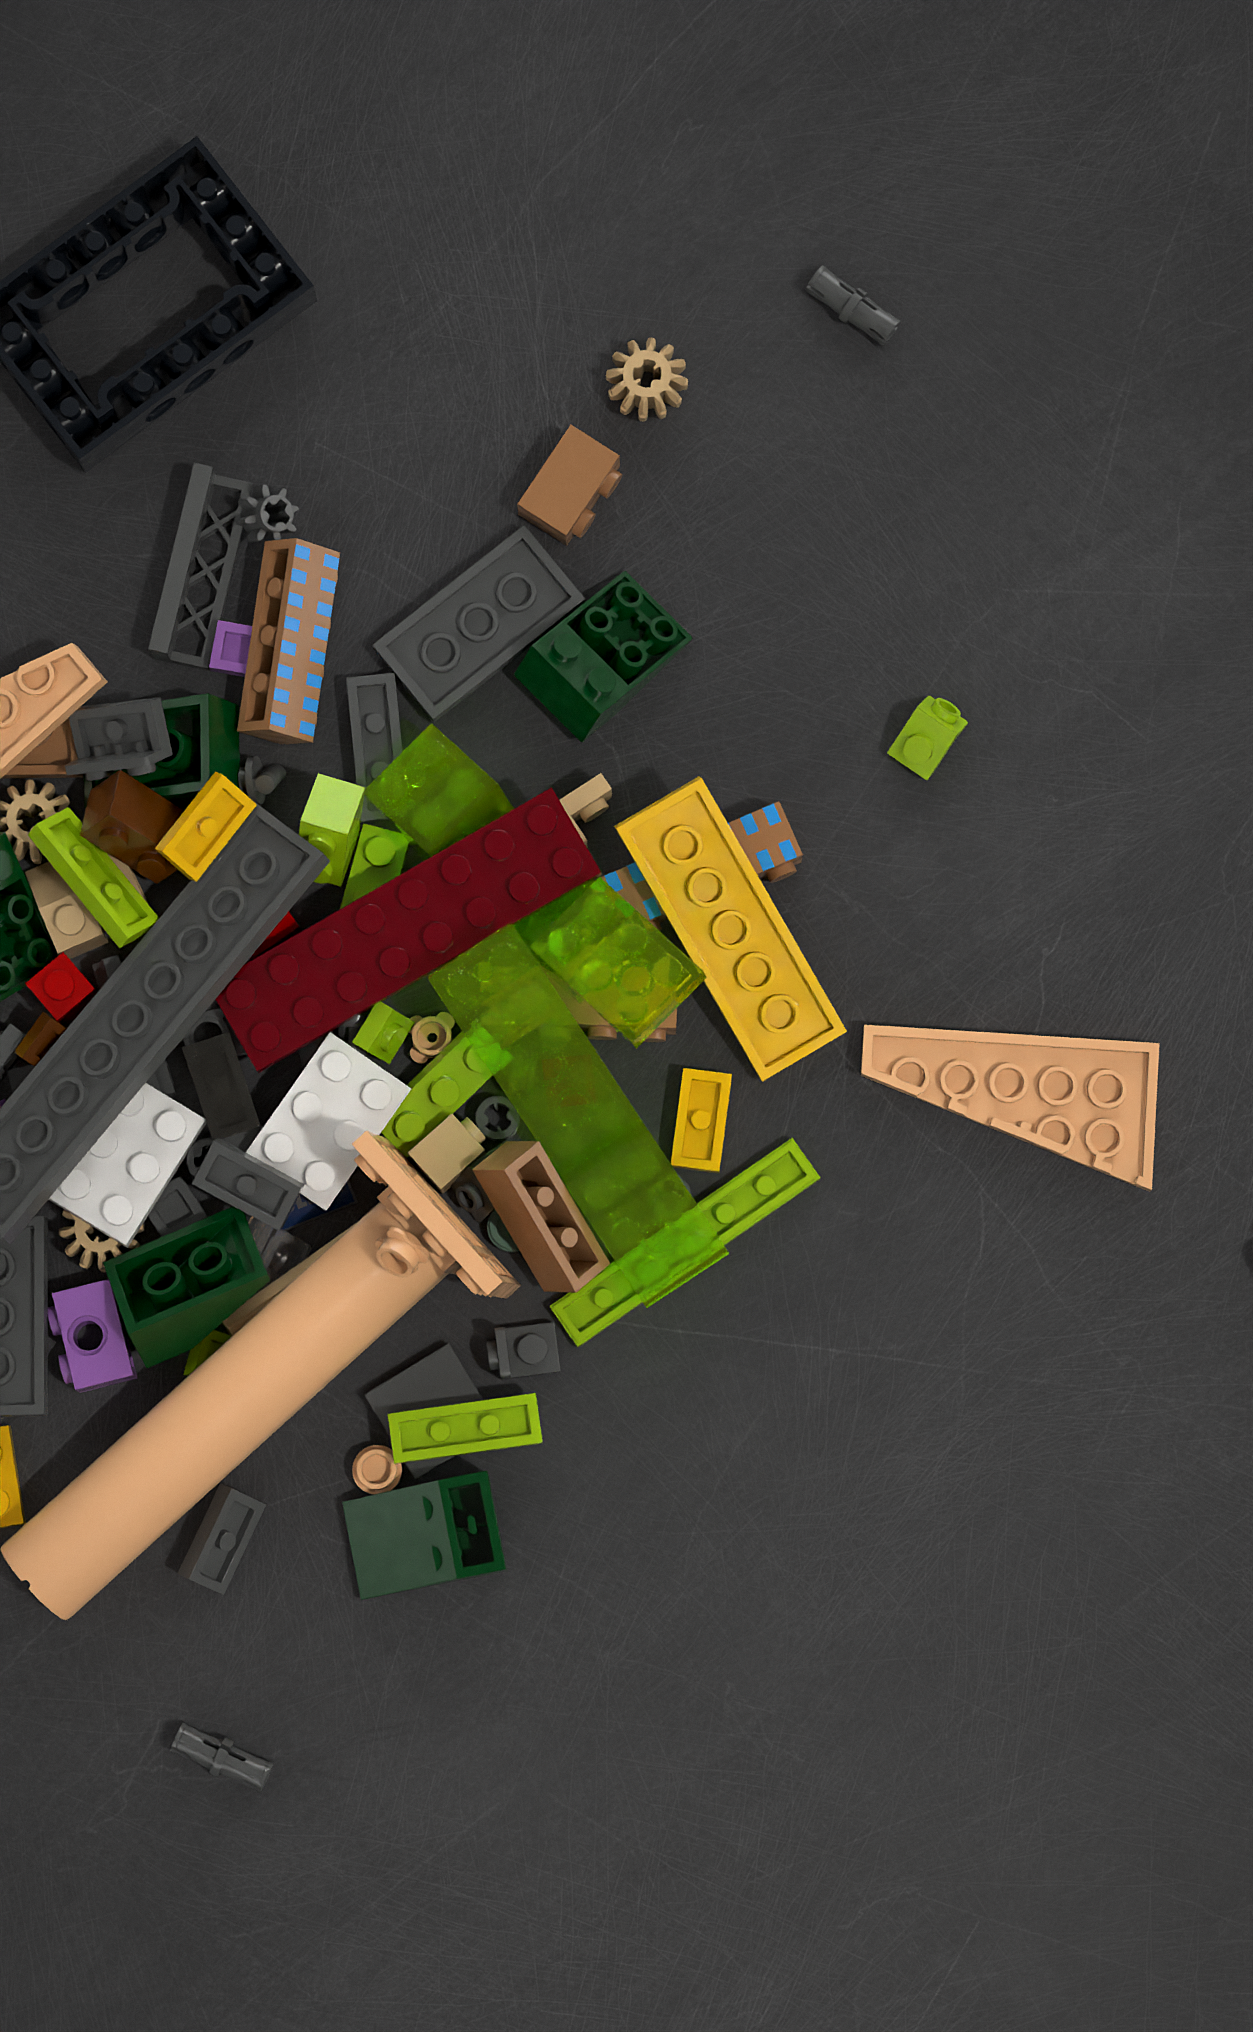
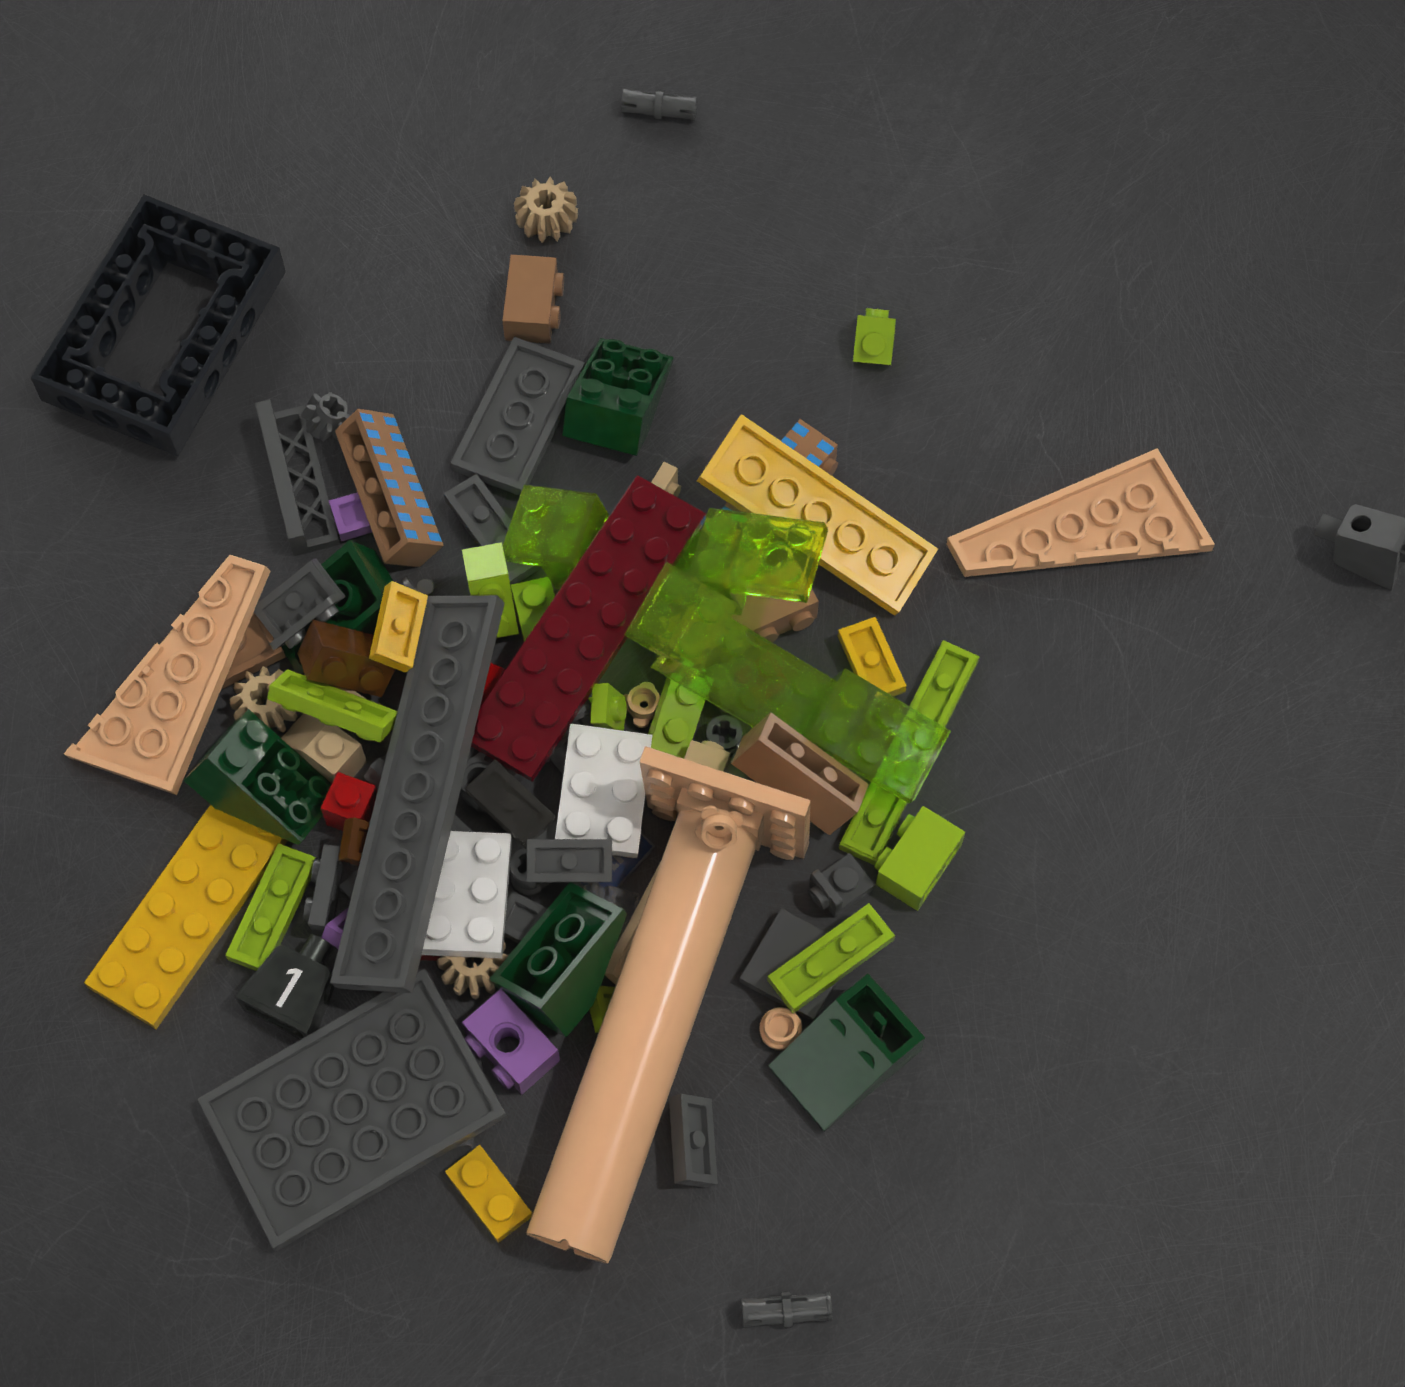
camera: 30 degrees left, 15 degrees down
(621, 1367) = (919, 857): none -> lime brick

